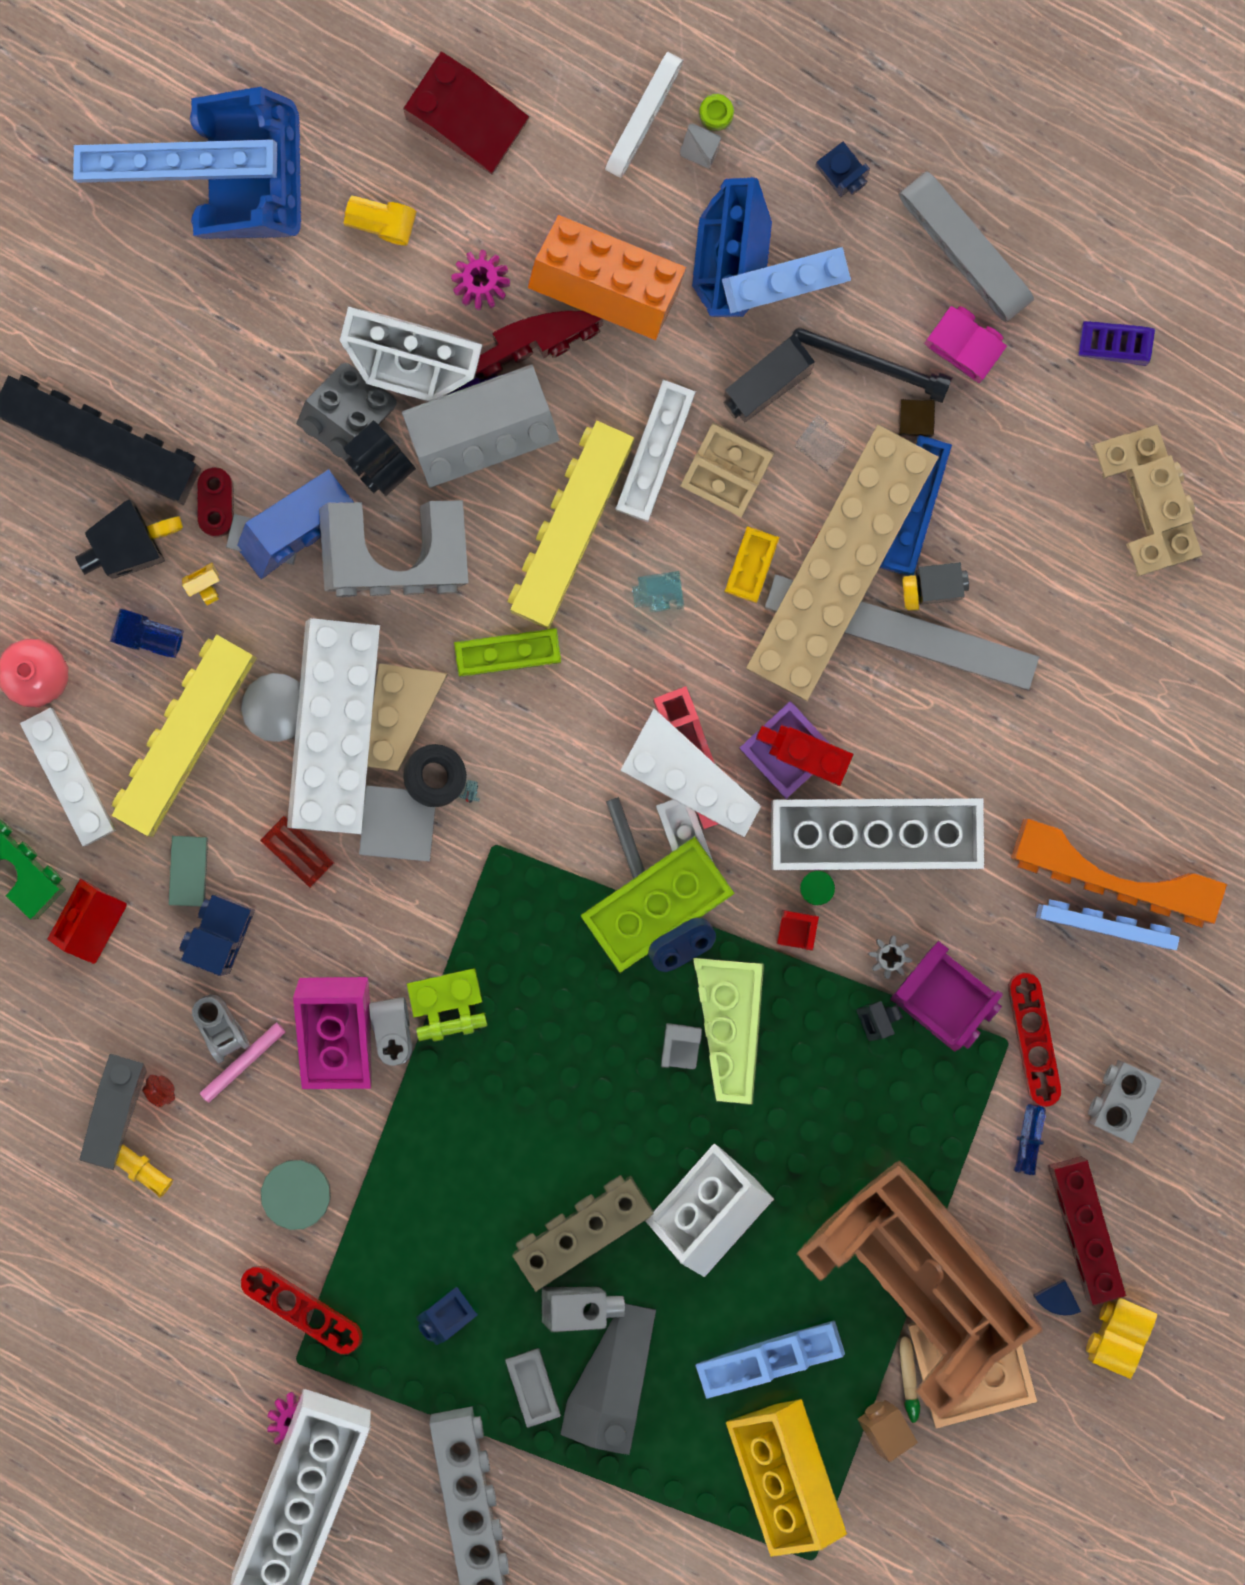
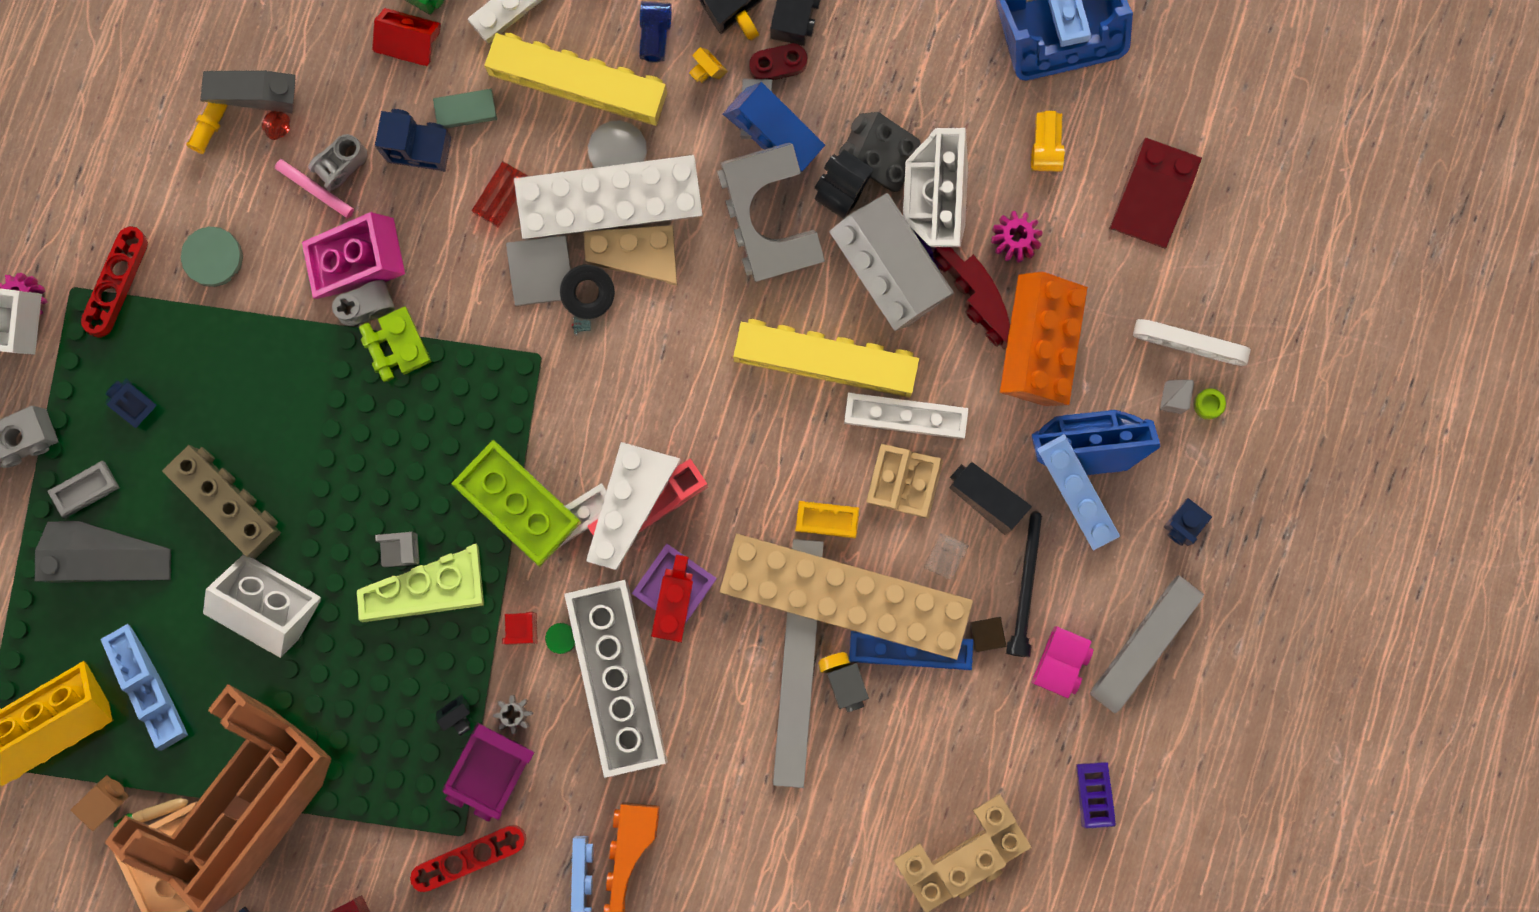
camera: 75 degrees right, 5 degrees down
(507, 652) = (706, 330): lime tile -> none
(564, 1308) = (152, 501): light grey torso -> none
(625, 837) = (570, 464): dark grey bar -> none
(659, 592) = (785, 445): clear light blue brick -> none
(681, 944) = (485, 530): dark blue plate -> none
(1030, 1139) = (379, 873): clear blue axle -> none

